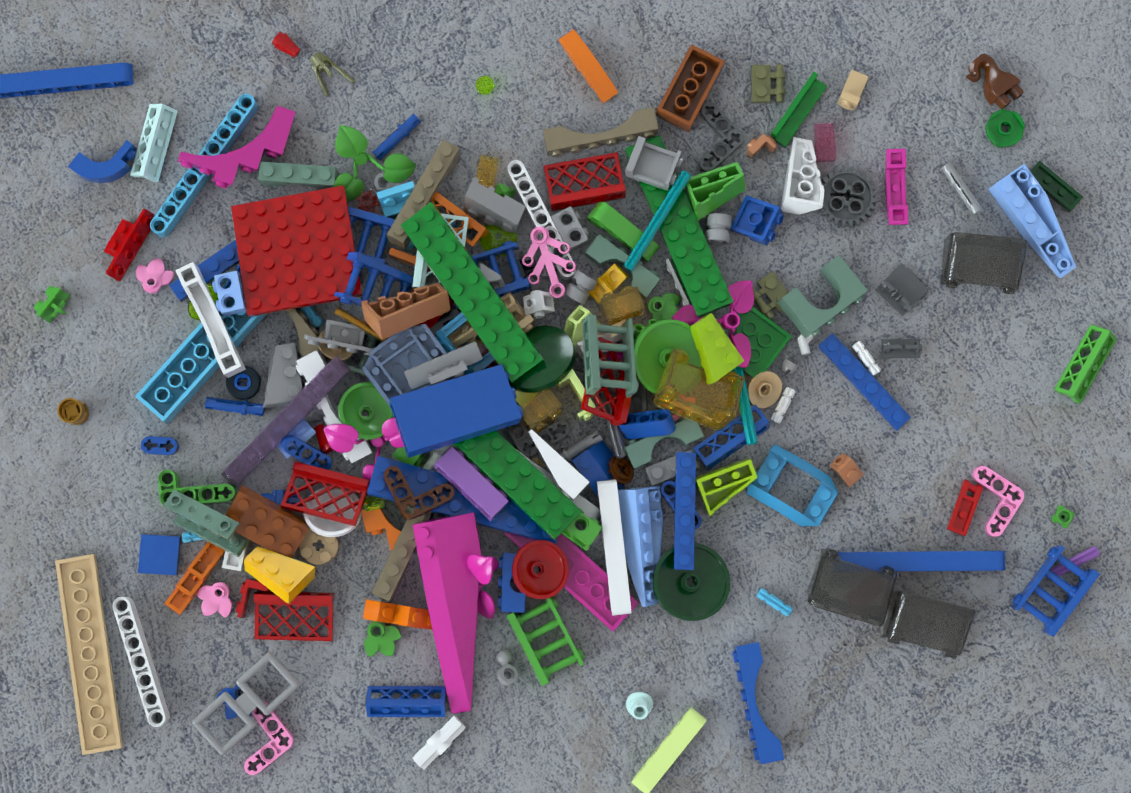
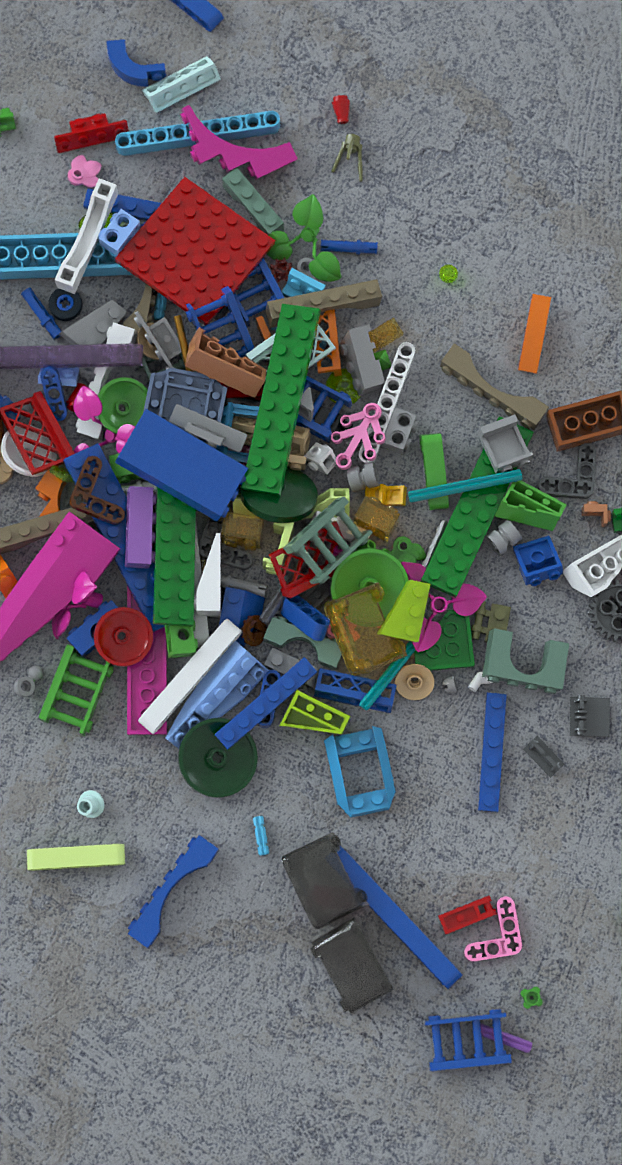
camera: 45 degrees right, 5 degrees down
(588, 196) = (439, 423): red fence -> none
(604, 252) = (405, 471): sand green arch -> none
(783, 405) = (416, 707): white axle -> none
(846, 469) = (412, 799): nougat bracket -> none
(866, 358) = (511, 737): white axle -> none

